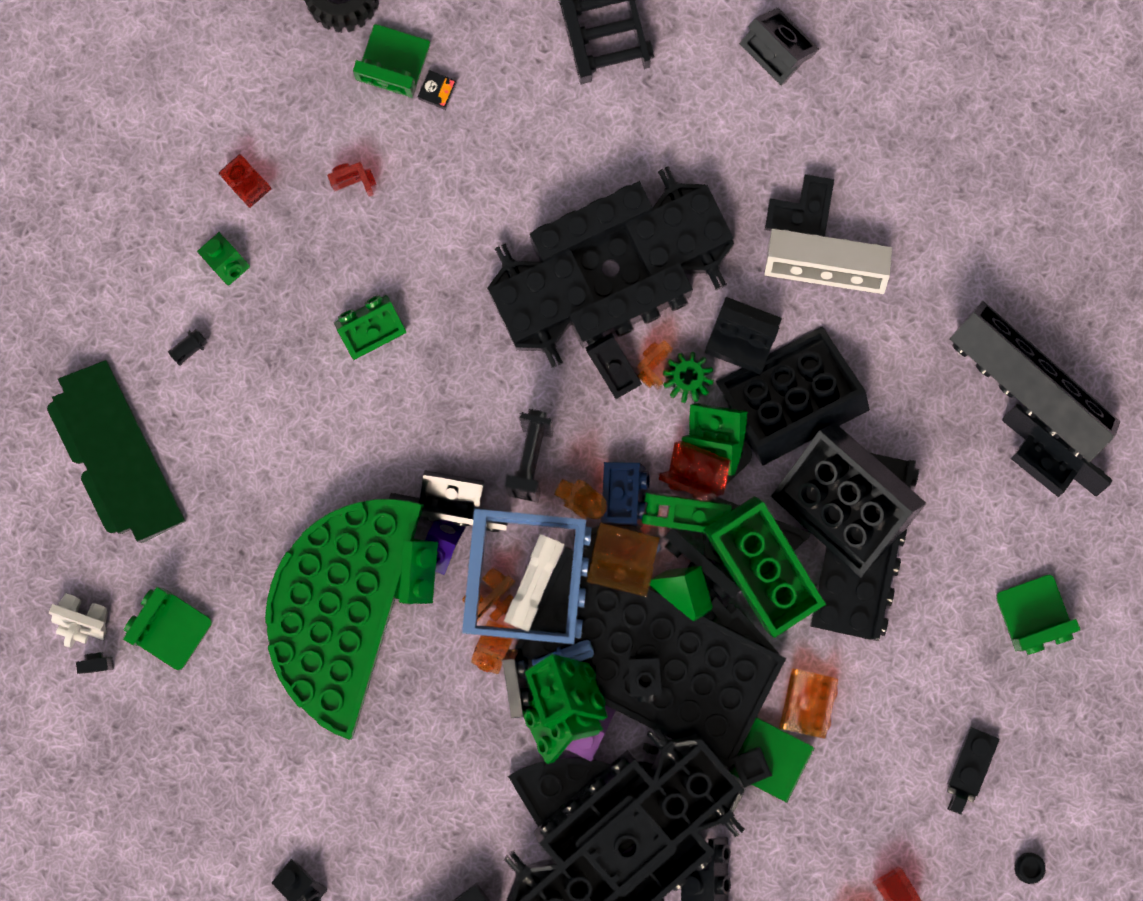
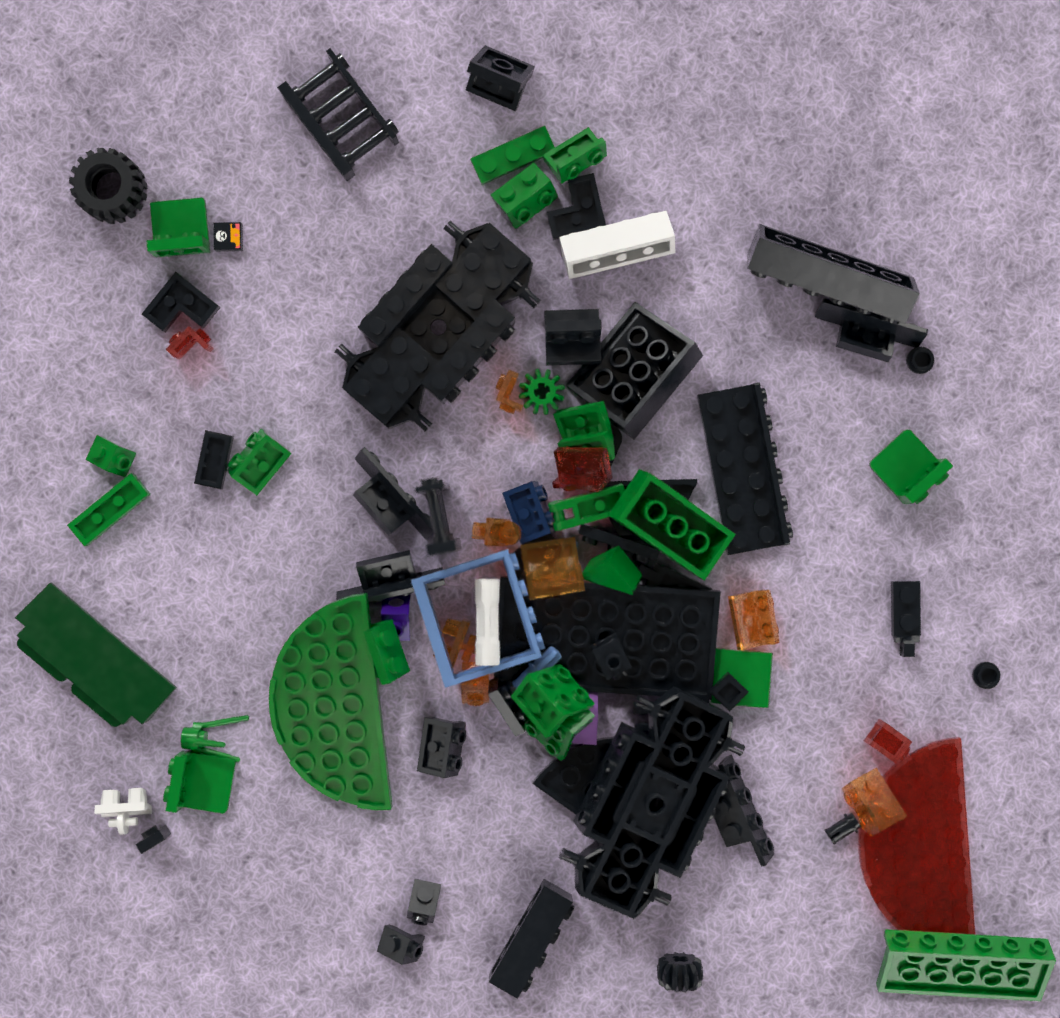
camera: 25 degrees left, 5 degrees up
(182, 581) = (197, 739): none -> green plant
(188, 347) = (113, 543): black pin -> none
(198, 311) = (109, 509): none -> green plate
(244, 180) = (98, 383): clear red bracket -> none
(325, 306) = (213, 459): none -> black plate
(341, 852) = (423, 902): none -> black bracket
(362, 129) = (178, 297): none -> black plate
(430, 698) = (441, 747): none -> black bracket
(483, 420) = (387, 500): none -> black bracket
(613, 365) = (475, 408): black plate -> none
(755, 173) = (525, 195): none -> green bracket
(760, 128) = (512, 155): none -> green plate
(823, 154) = (575, 155): none -> green bracket
(847, 499) = (716, 438): black slope -> none
(1093, 509) = (920, 360): none -> black plate

